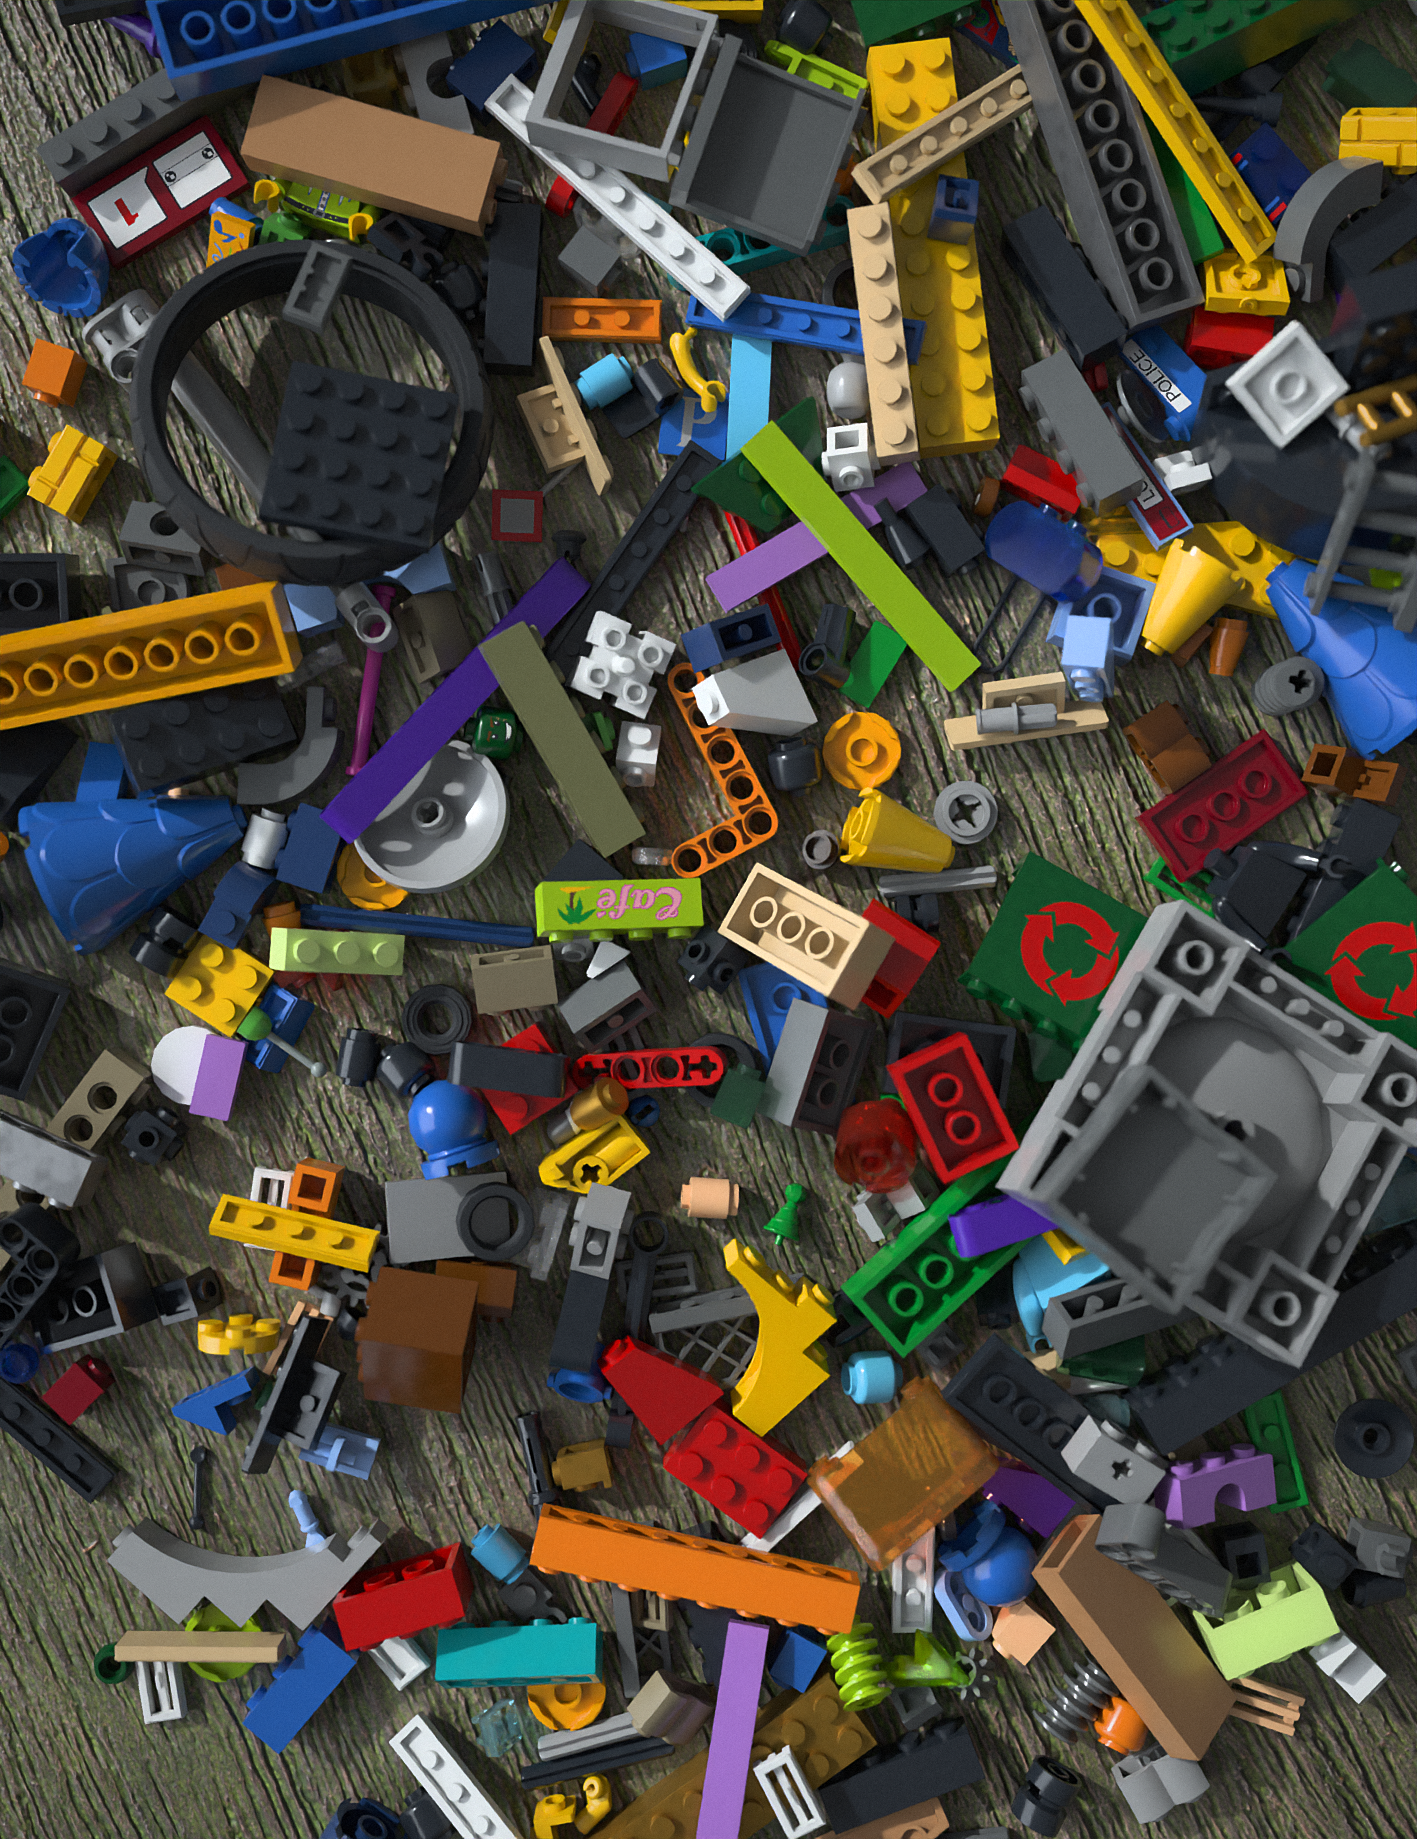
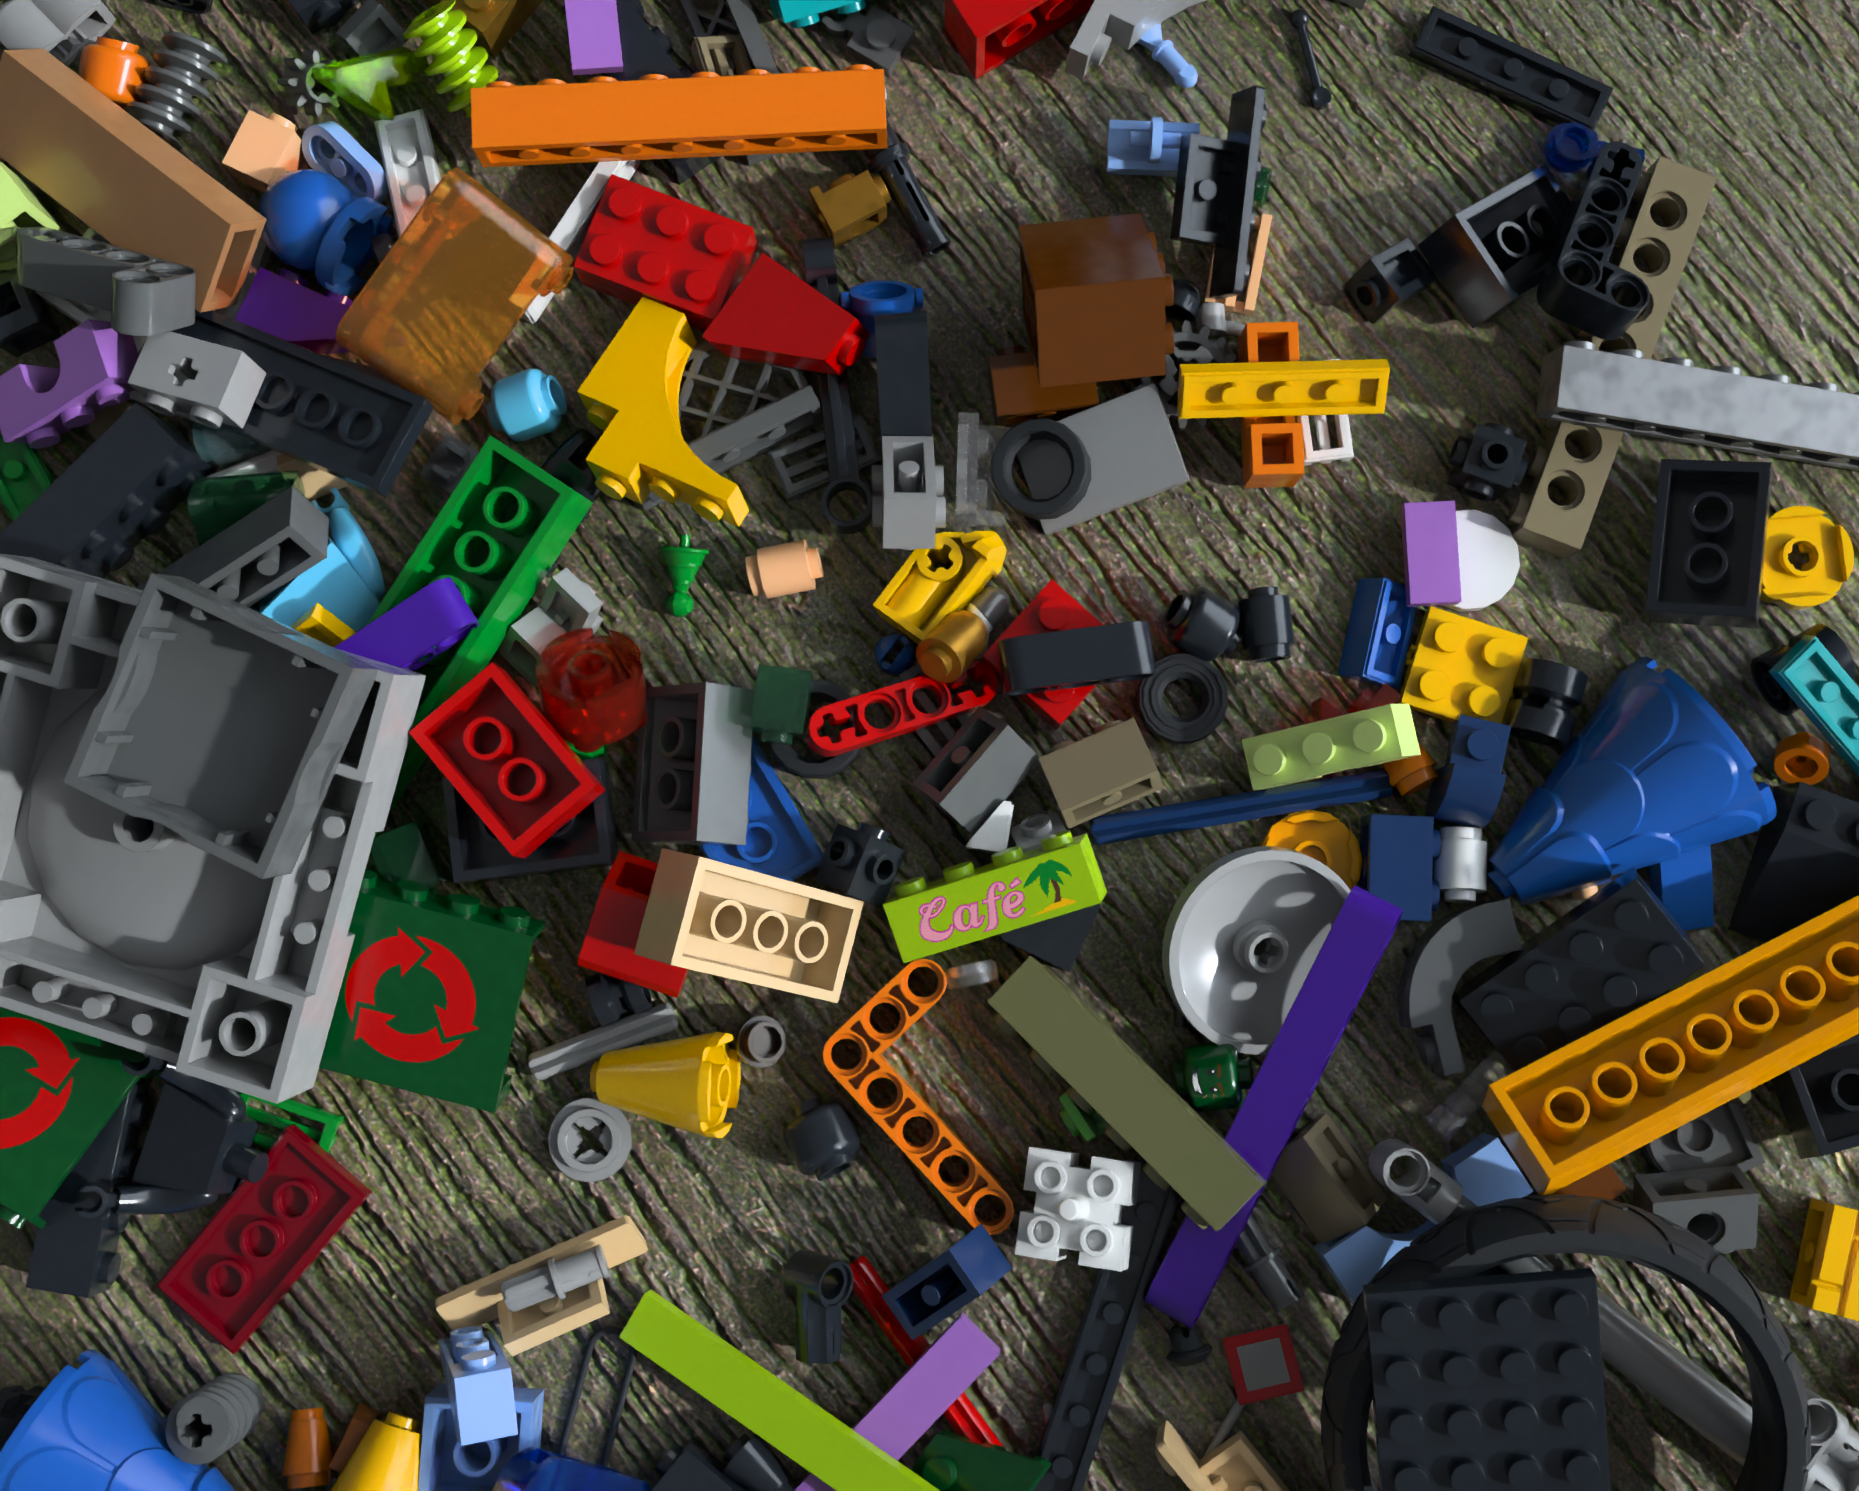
camera: 165 degrees right, 5 degrees down
(79, 1388) = (1487, 136): dark red brick -> none
(210, 1406) = (1321, 158): blue slope -> none
(238, 1333) = (1314, 251): yellow plate -> none
(258, 1026) = (1400, 628): hinge -> none
(369, 687) = (1386, 1092): dark pink bar -> none
(450, 1127) = (1127, 568): blue tile -> none
(499, 1553) = (924, 76): dark azure brick -> none
(638, 753) = (1024, 1100): white bracket -> none
(757, 697) = (893, 1214): white slope -> none
(796, 1657) = (531, 47): blue brick -> none
(861, 751) = (743, 1182): light orange tile -> none
(872, 664) = (757, 1298): green tile -> none
(997, 1301) = (393, 536): black bracket -> none
(1167, 746) = (351, 1295): reddish brown brick -> none
(1351, 776) = (108, 1323): reddish brown brick -> none

